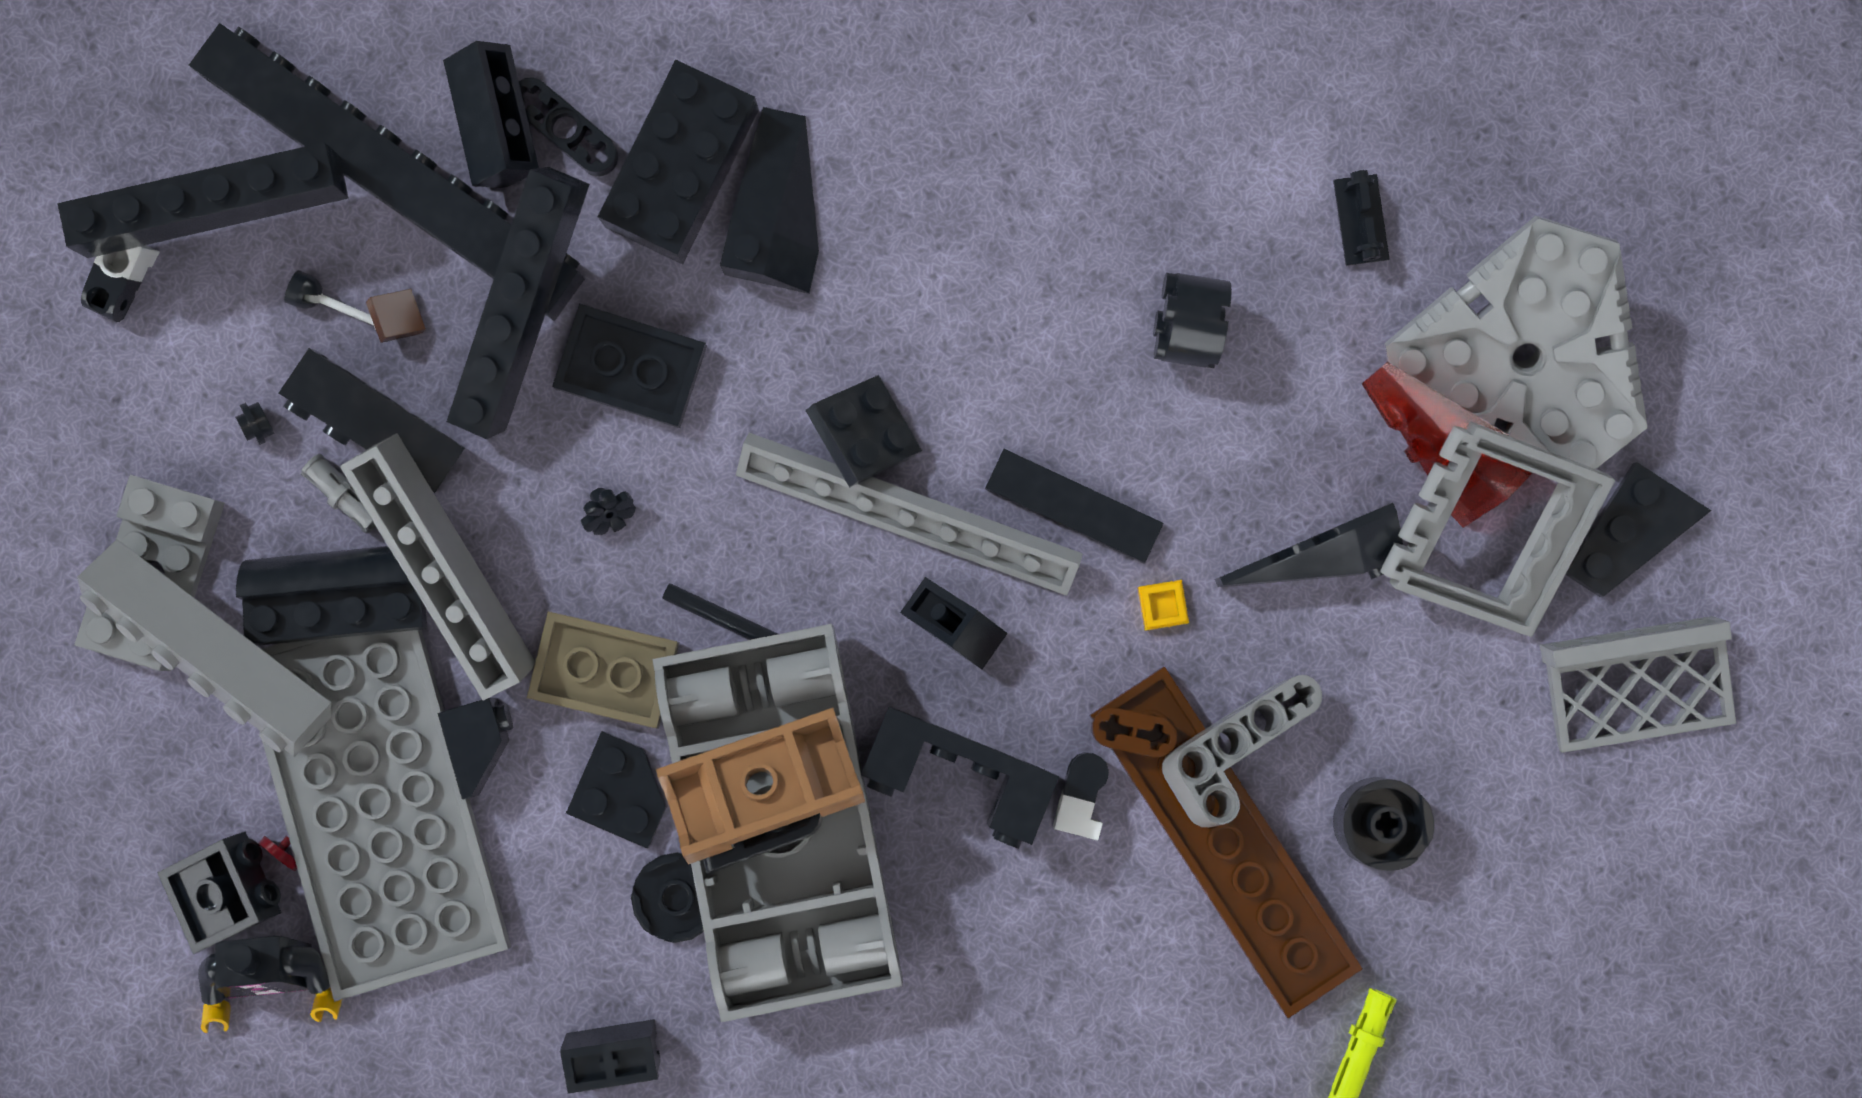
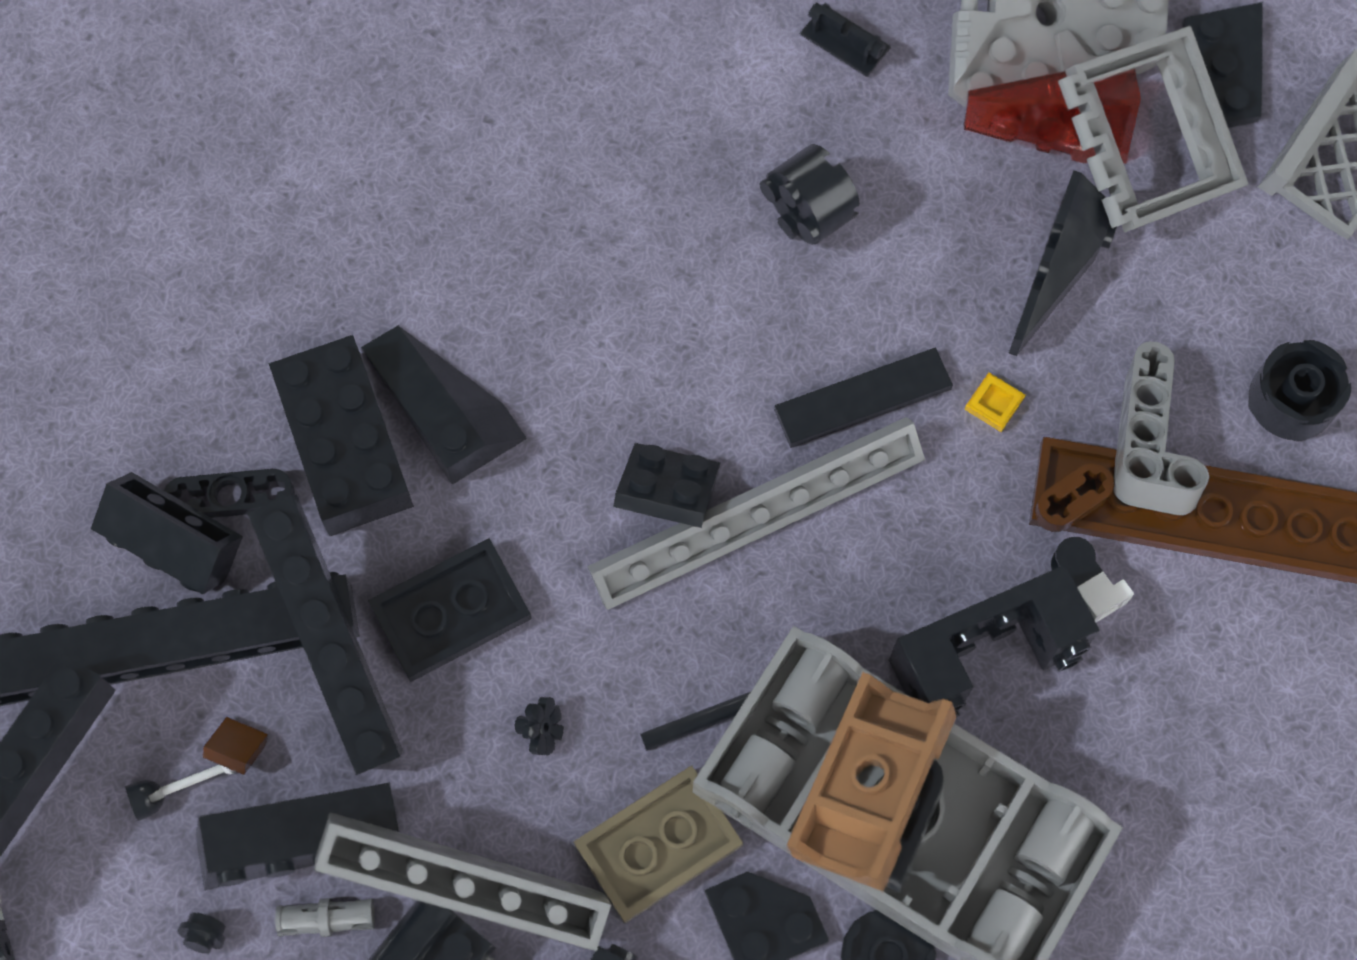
camera: 45 degrees left, 15 degrees down
(954, 623) = (871, 552): black slope -> none

